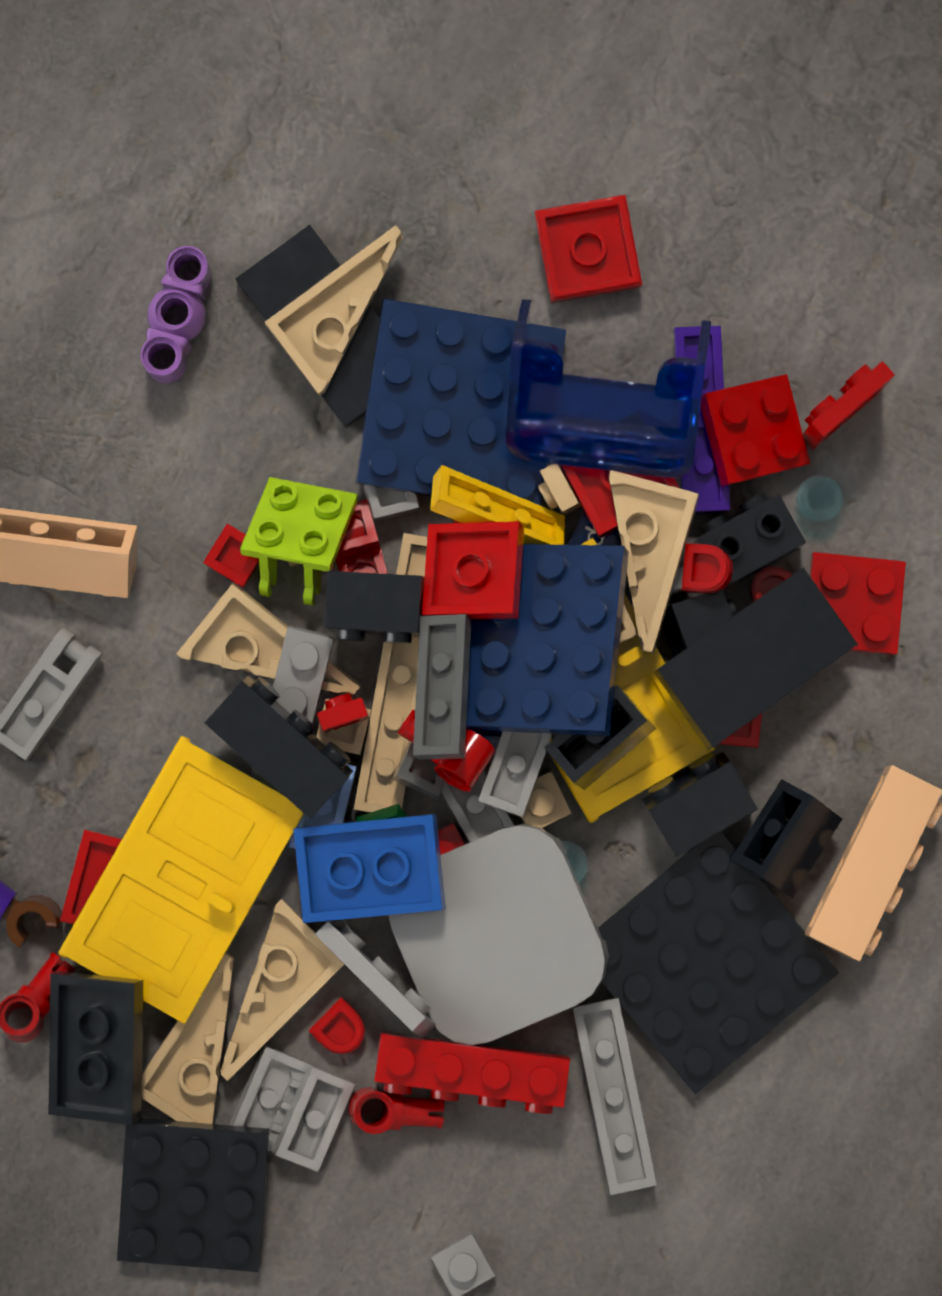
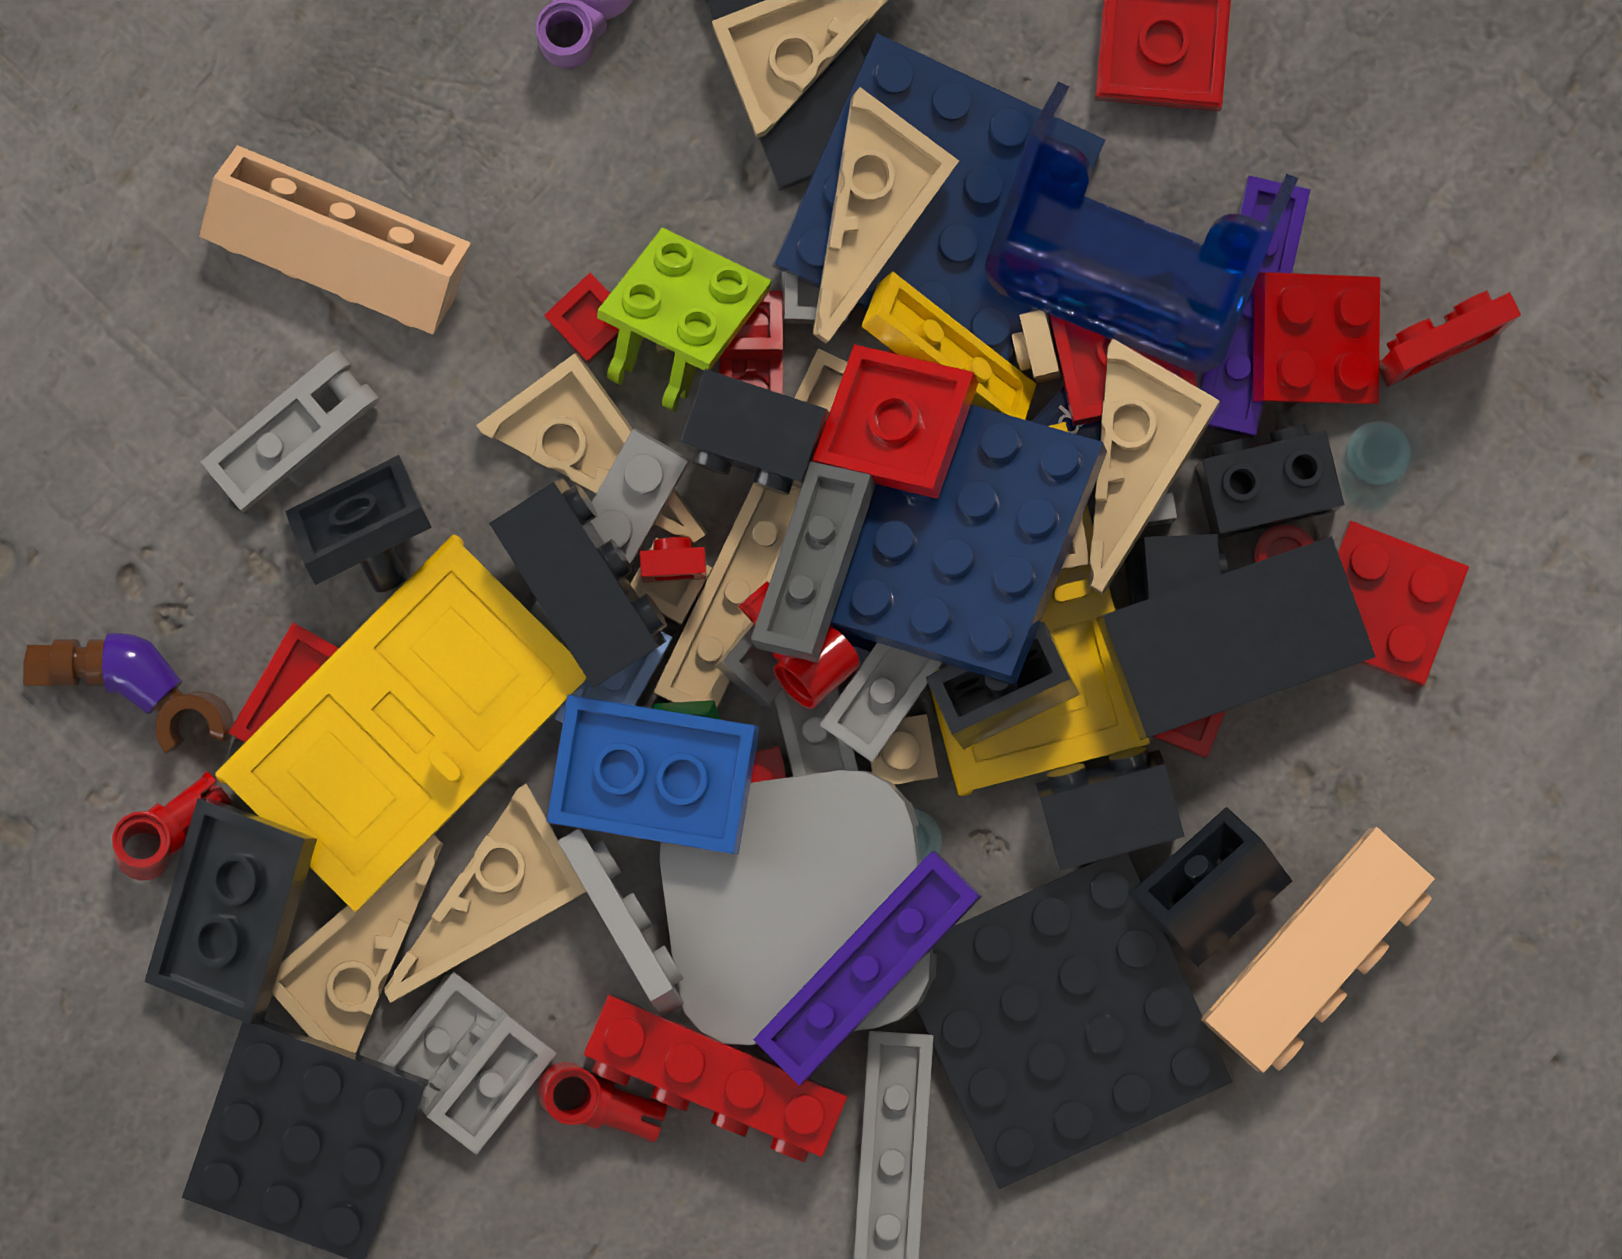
camera: 10 degrees right, 0 degrees up
(113, 748) = (360, 525): none -> black tile
(339, 1028) = (556, 975): red tile -> none
(417, 412) = (881, 191): none -> tan wing
(559, 964) = (867, 967): none -> dark purple plate
(705, 569) = (1202, 503): red tile -> none

